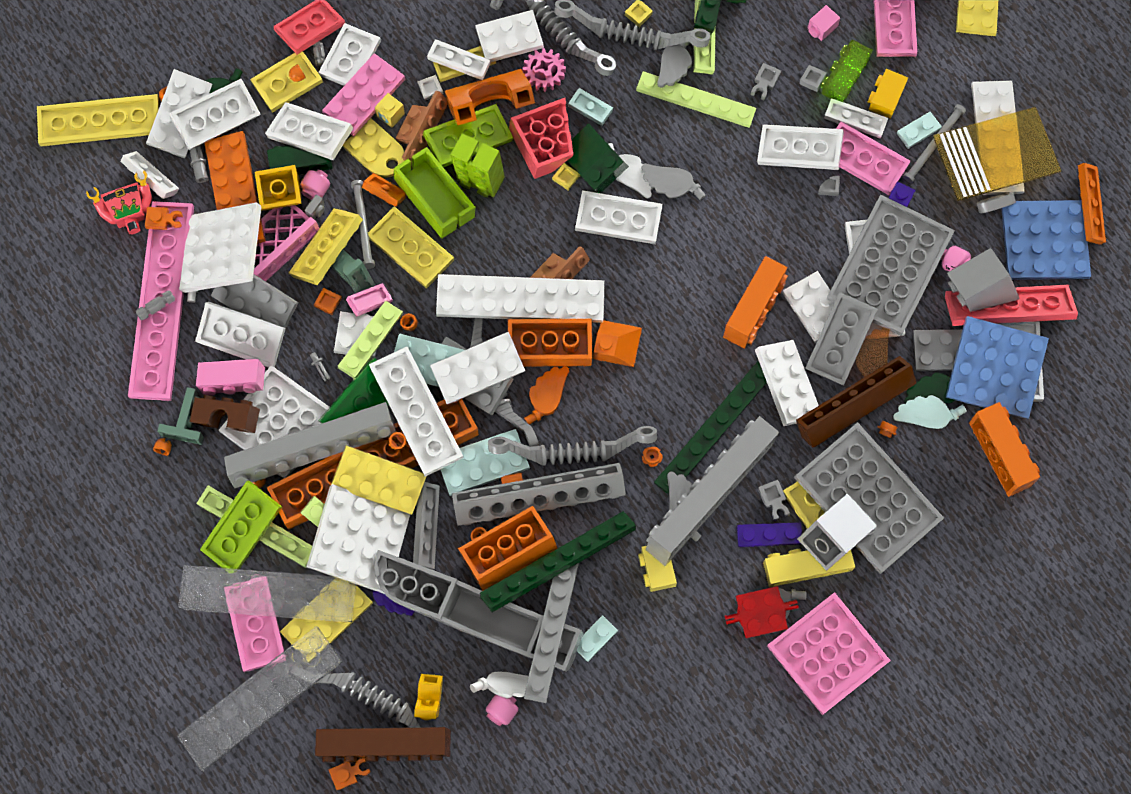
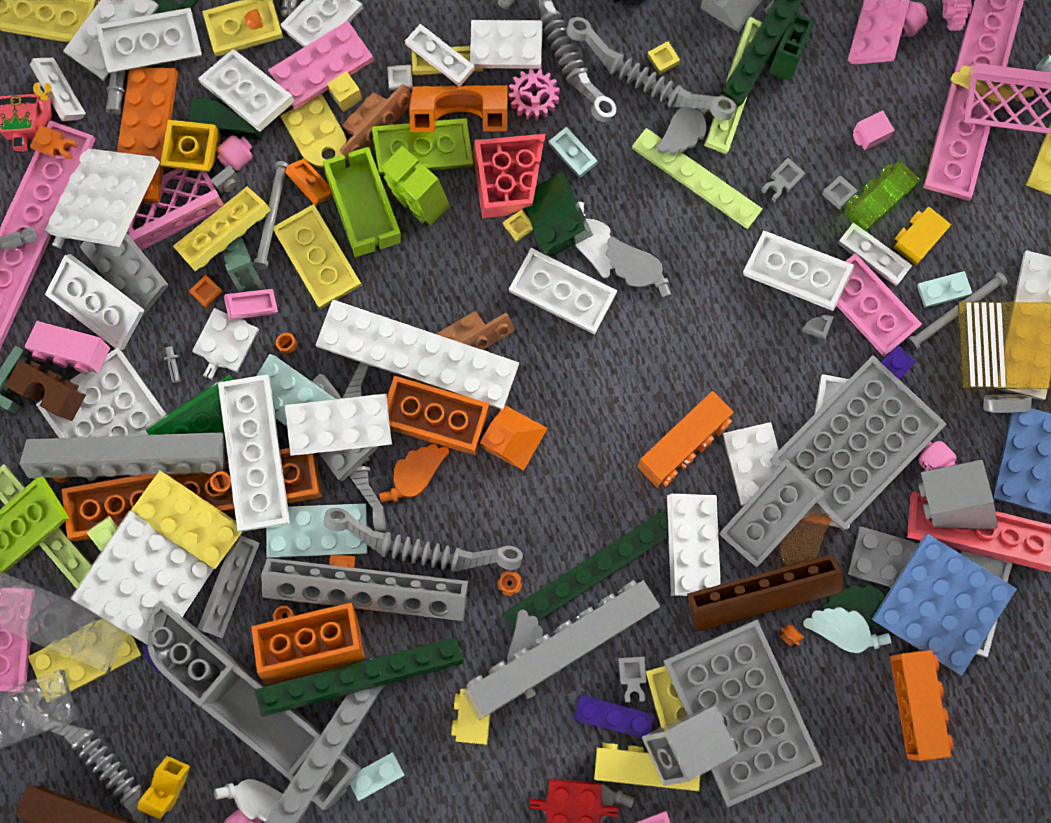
camera: 20 degrees right, 5 degrees up
(370, 339) = (235, 351): yellowish green plate -> none

